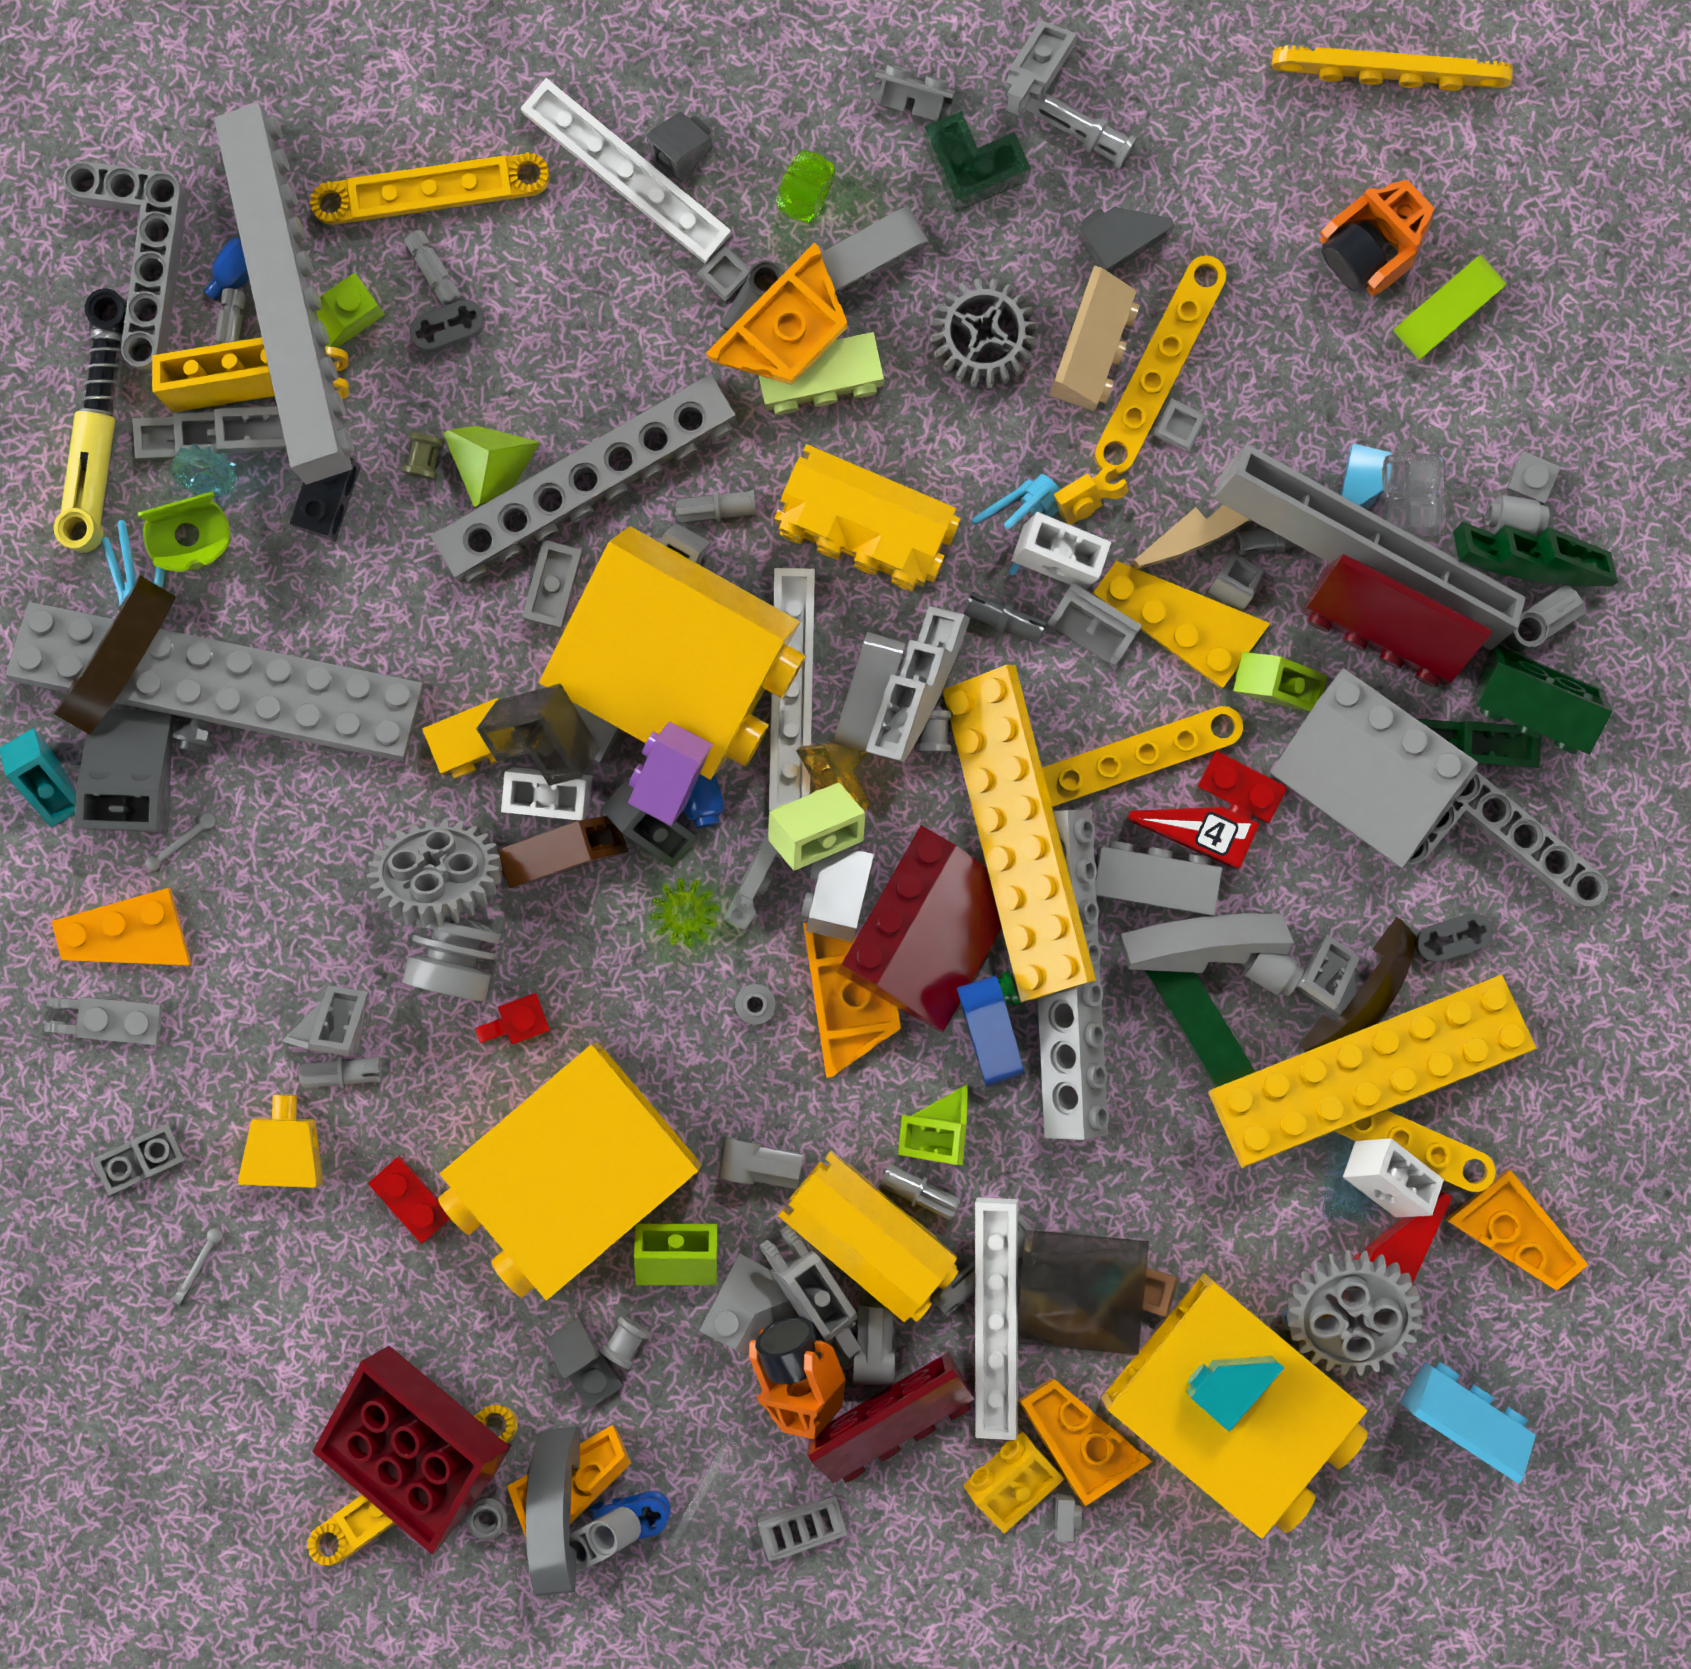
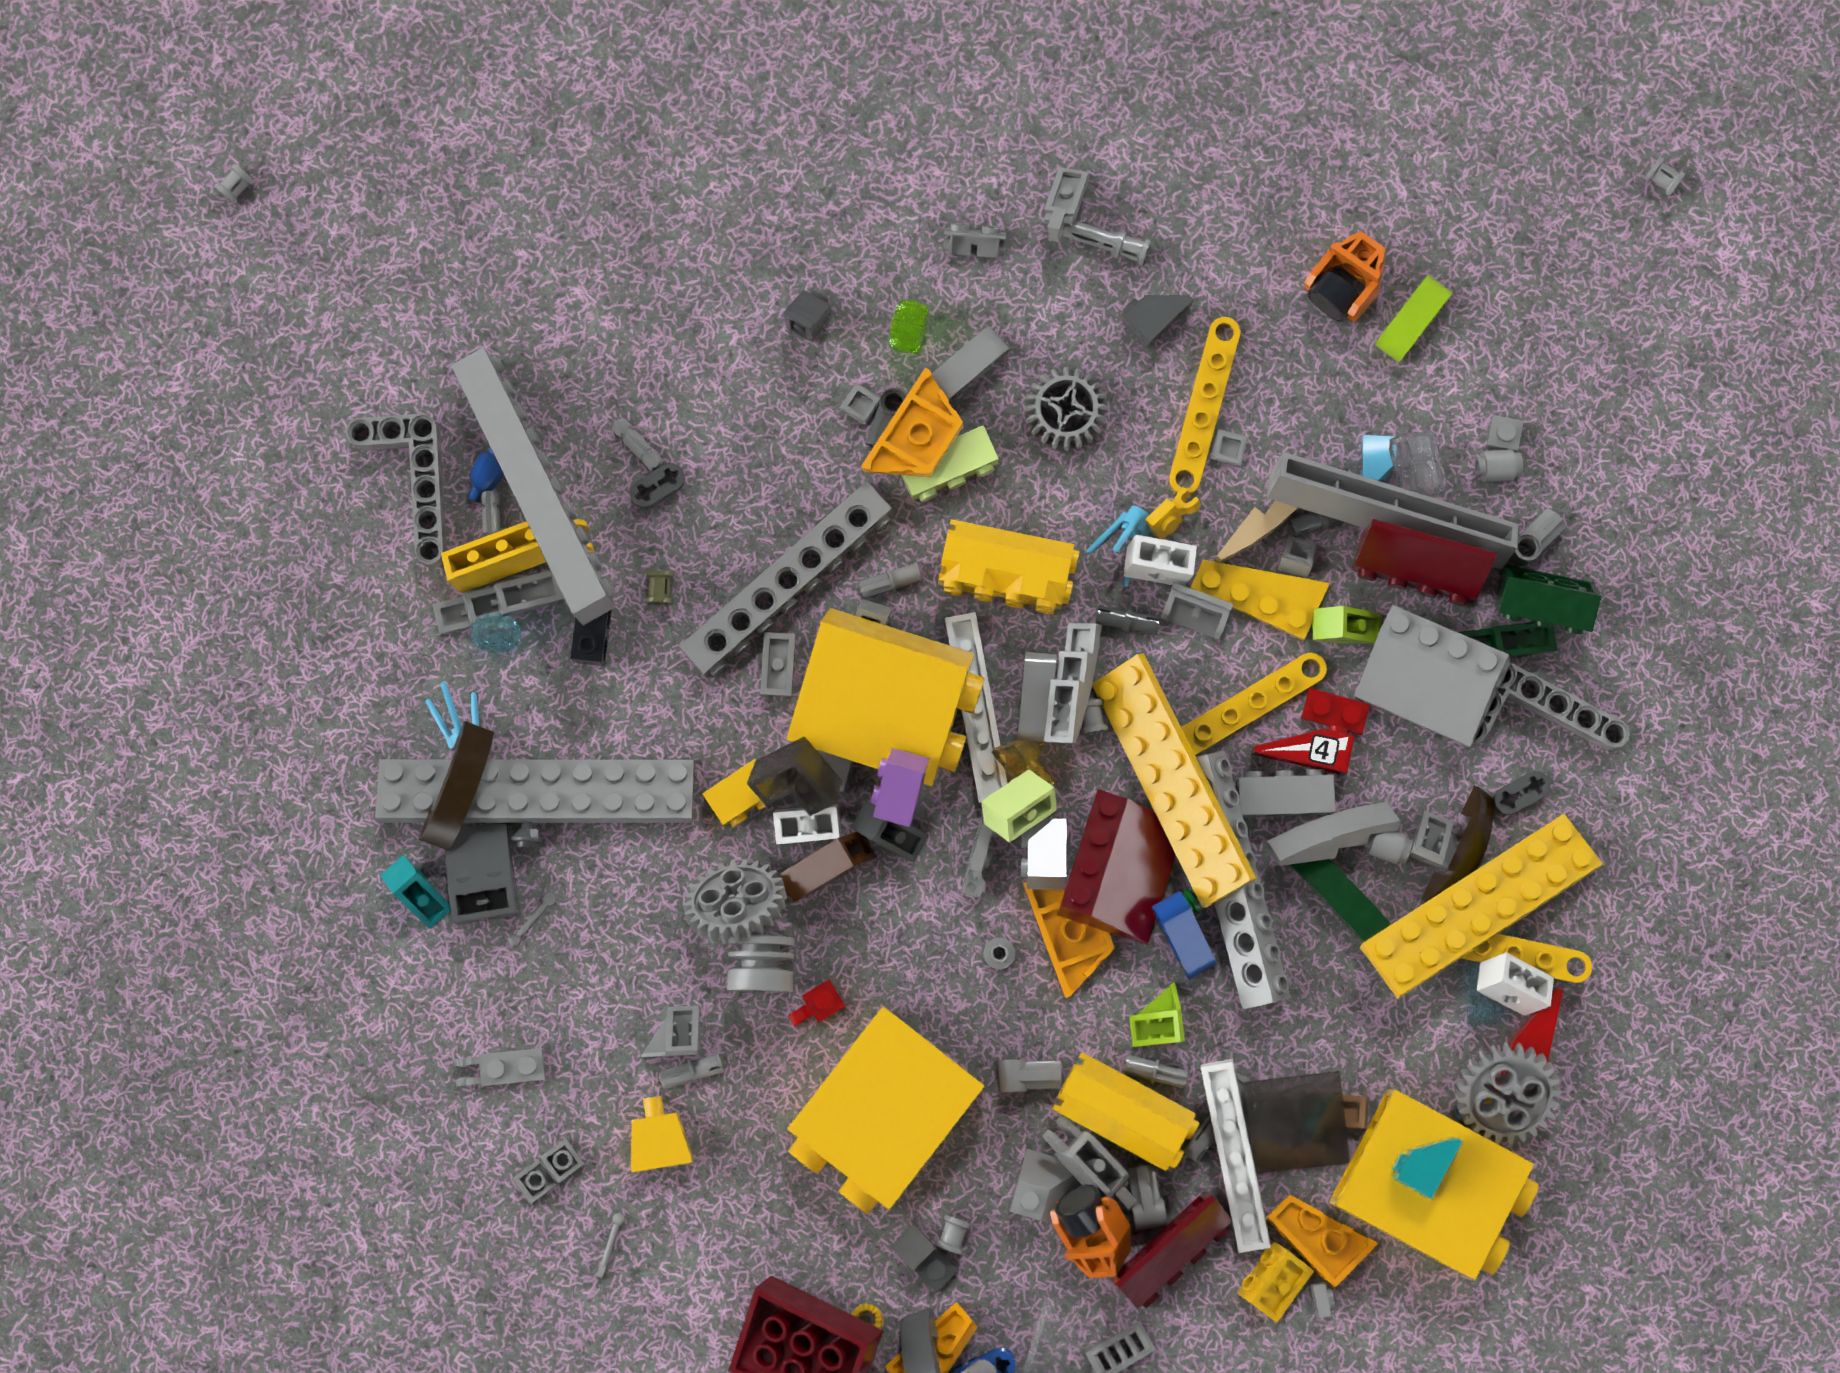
camera: 10 degrees left, 5 degrees down
(92, 429) = (403, 617): piece -> none
(127, 931) = (503, 997): light orange wing -> none
(164, 521) = (504, 669): lime piece -> none
(347, 310) = (582, 487): lime slope -> none
(409, 1199) = (764, 1159): red plate -> none
(430, 188) = (623, 385): yellow plate -> none
(489, 460) = (710, 580): lime slope -> none
(626, 171) = (770, 342): white plate -> none
(676, 1254) = (979, 1157): lime brick -> none
(680, 899) = (937, 901): clear neon green gear -> none
(705, 802) = (929, 806): blue plant -> none
(973, 172) = (1029, 290): clear green brick -> none
(1095, 341) = (1151, 398): tan slope -> none
(1407, 68) = (1343, 148): yellow plate -> none
(1470, 1419) = (1615, 1158): medium azure slope -> none
(1519, 1230) = (1620, 1006): light orange wing -> none
(1545, 558) = (1526, 492): dark green slope -> none

